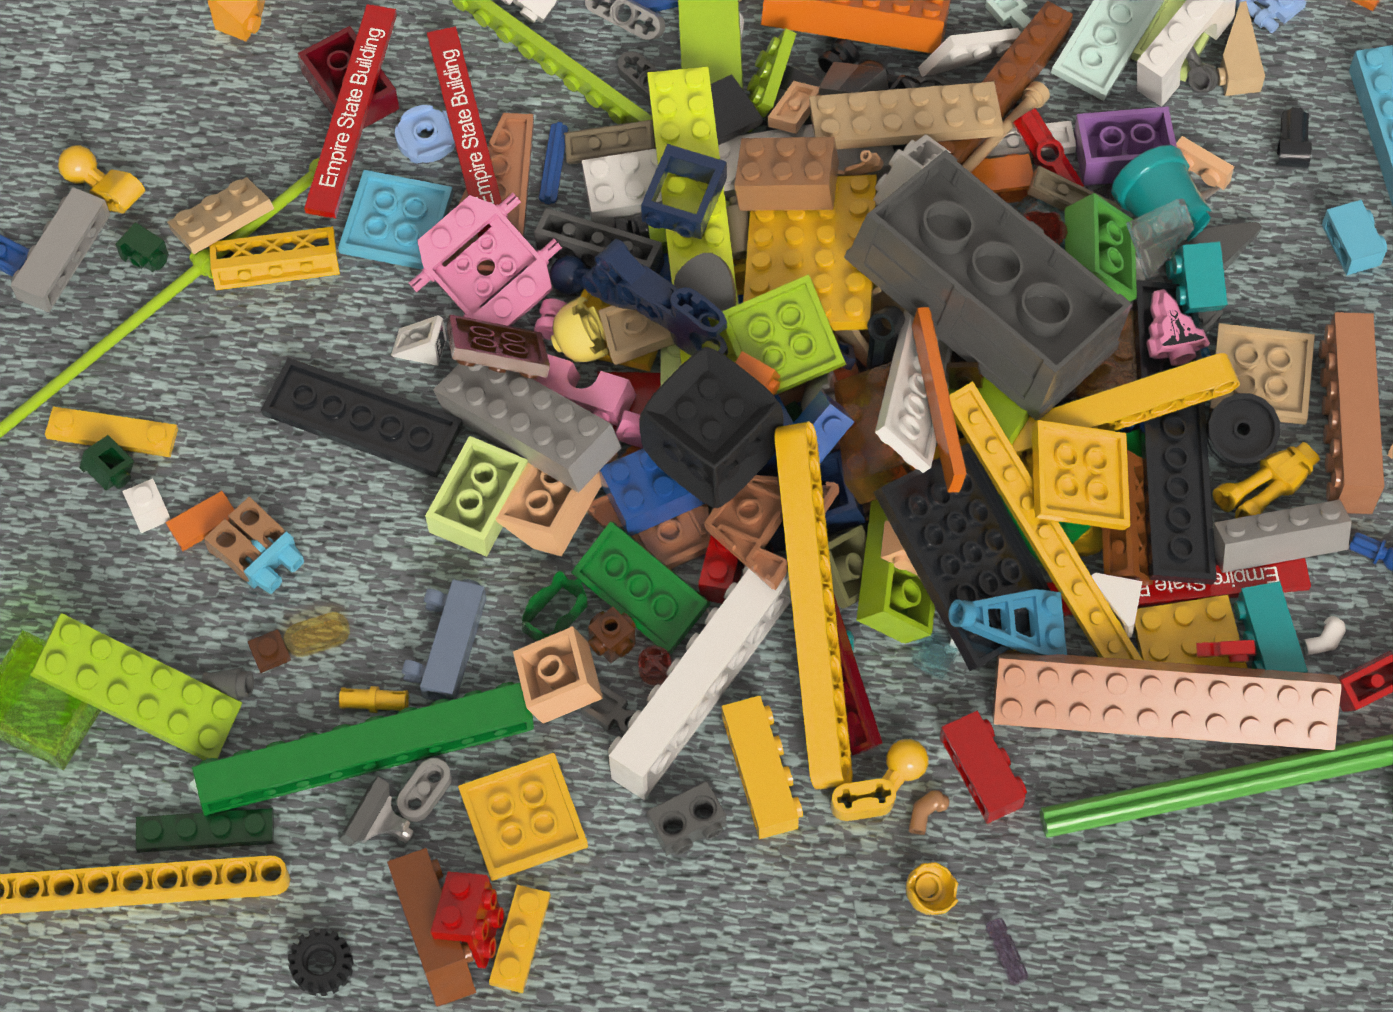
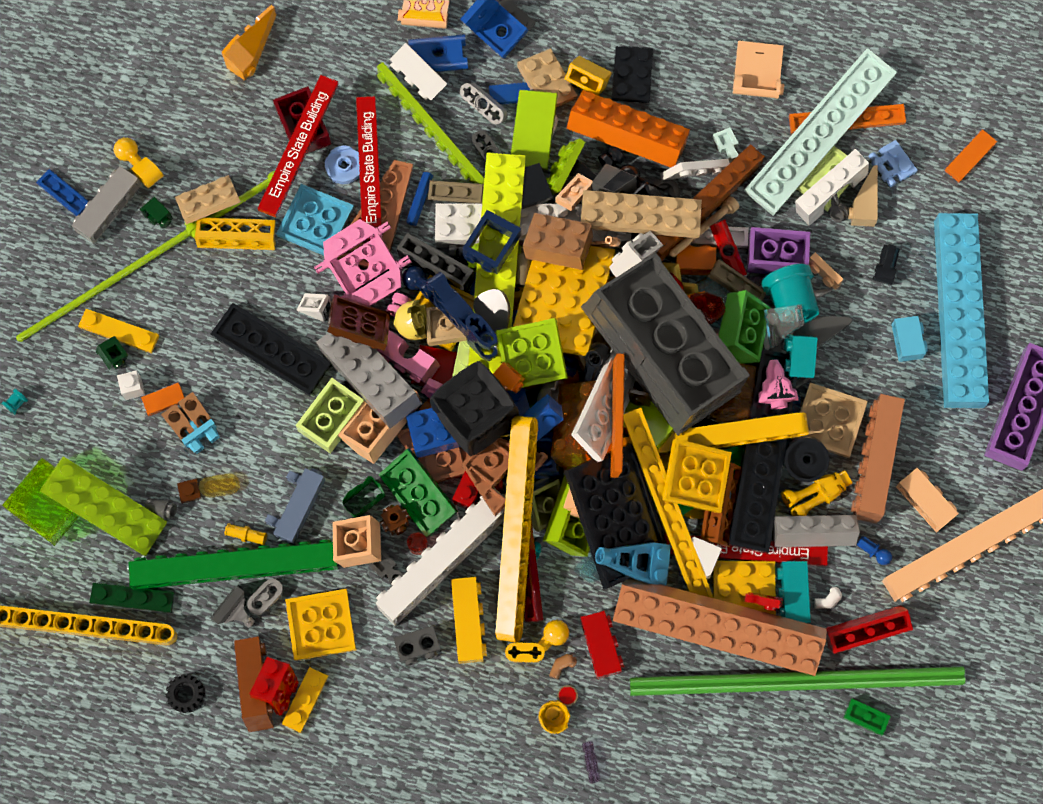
camera: 10 degrees right, 10 degrees up
(947, 853) = (567, 695): none -> red tile

